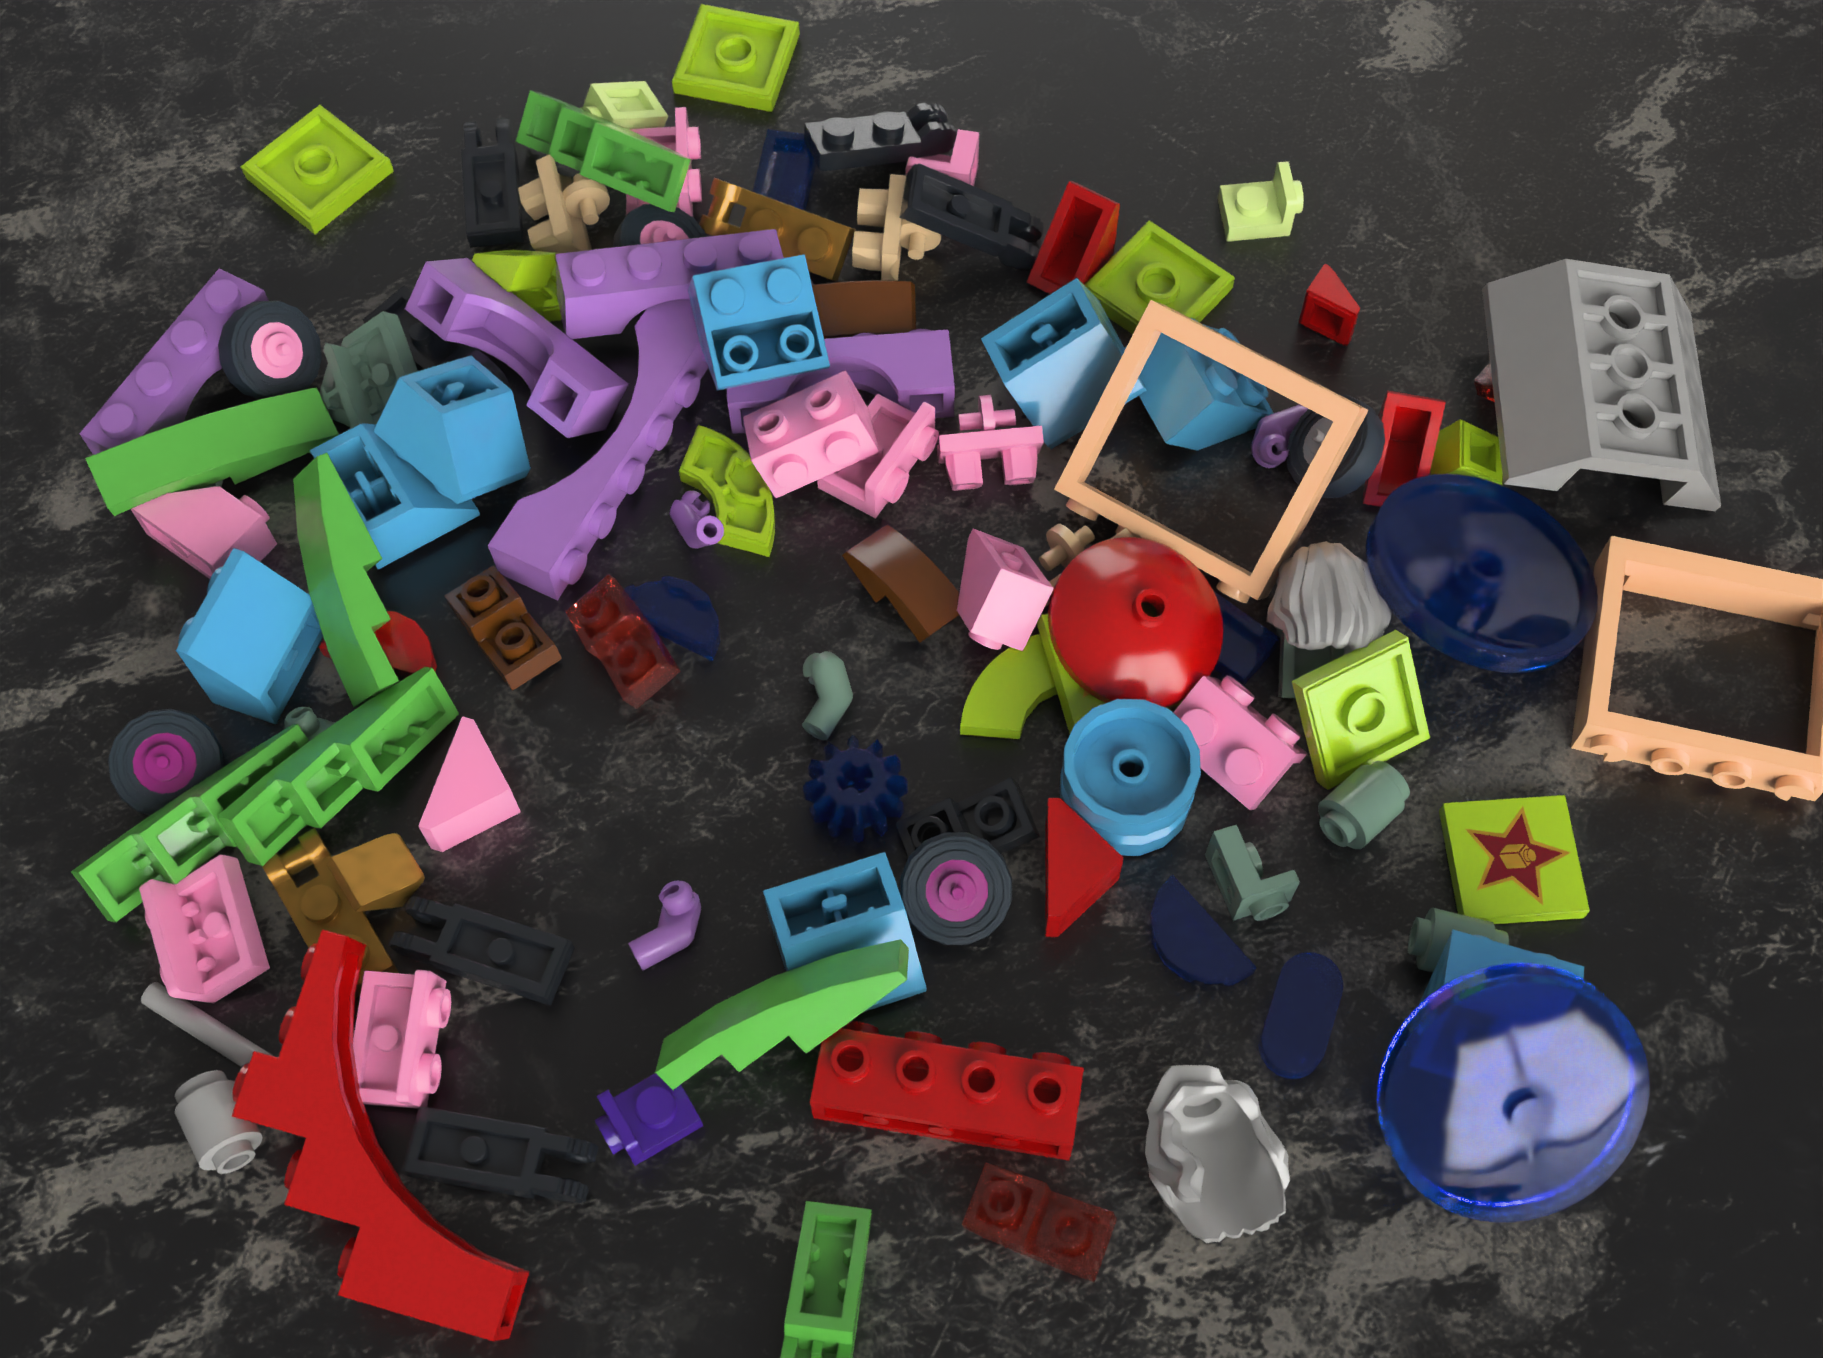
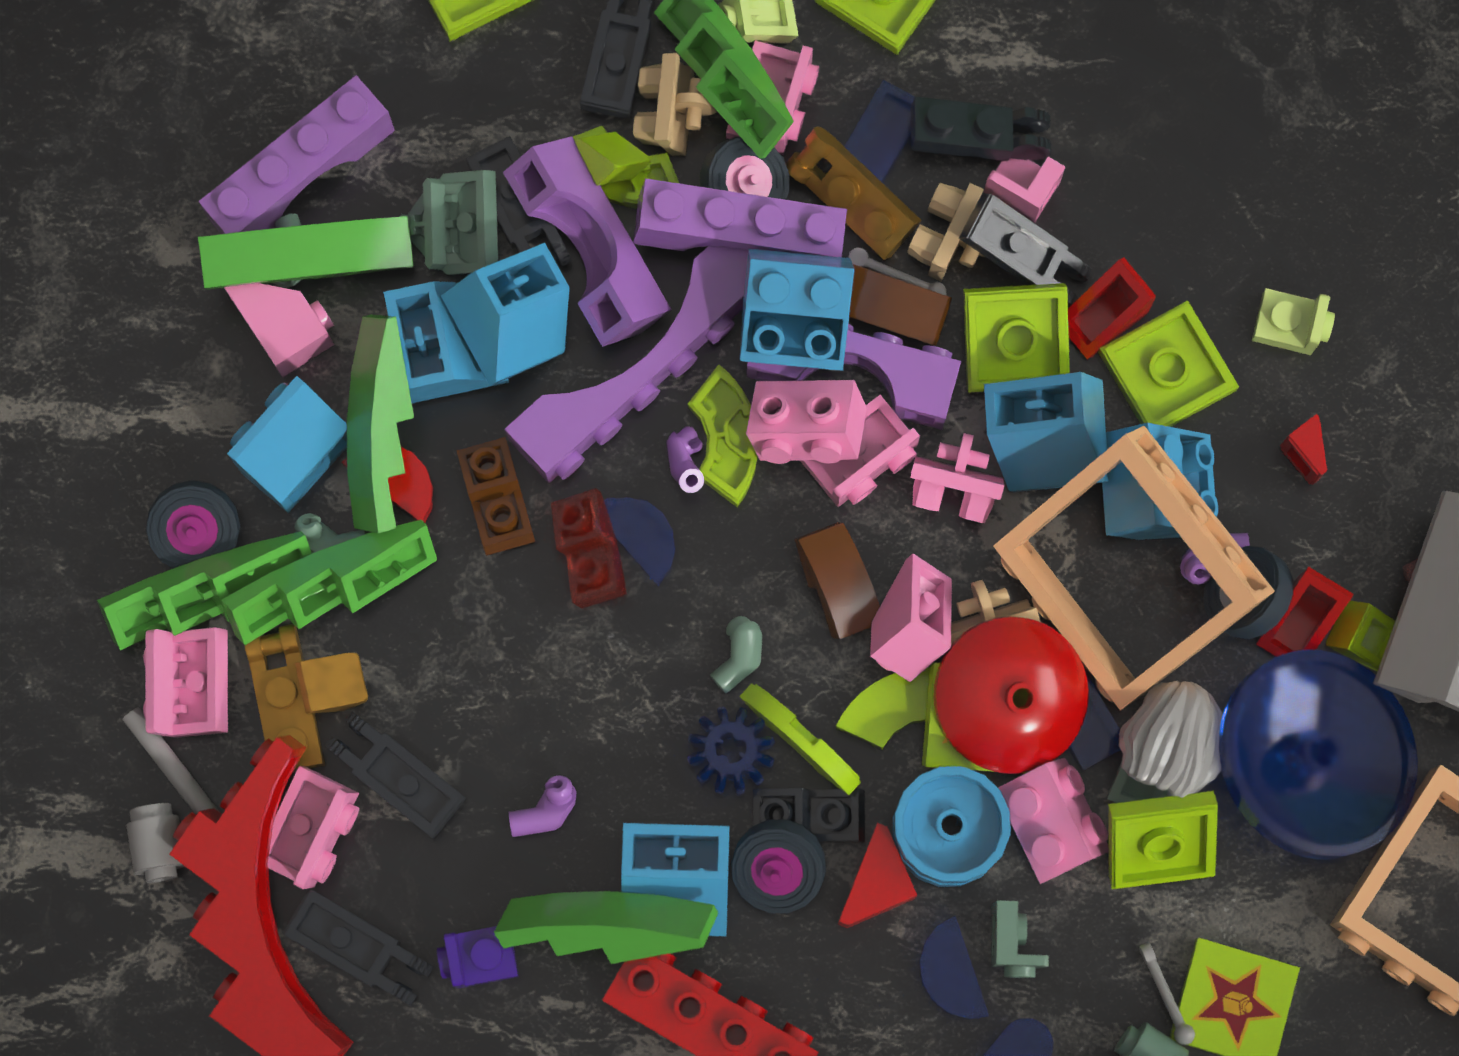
camera: 20 degrees right, 15 degrees up
(269, 349) = (377, 168): black wheel -> none
(467, 793) = (425, 638): bright pink slope -> none
(953, 757) = (813, 750): none -> lime tile
(985, 290) = (1015, 333): none -> lime tile
(1363, 805) = (1132, 915): sand green brick -> none
(1477, 904) = (1183, 1033): none -> light grey hinge

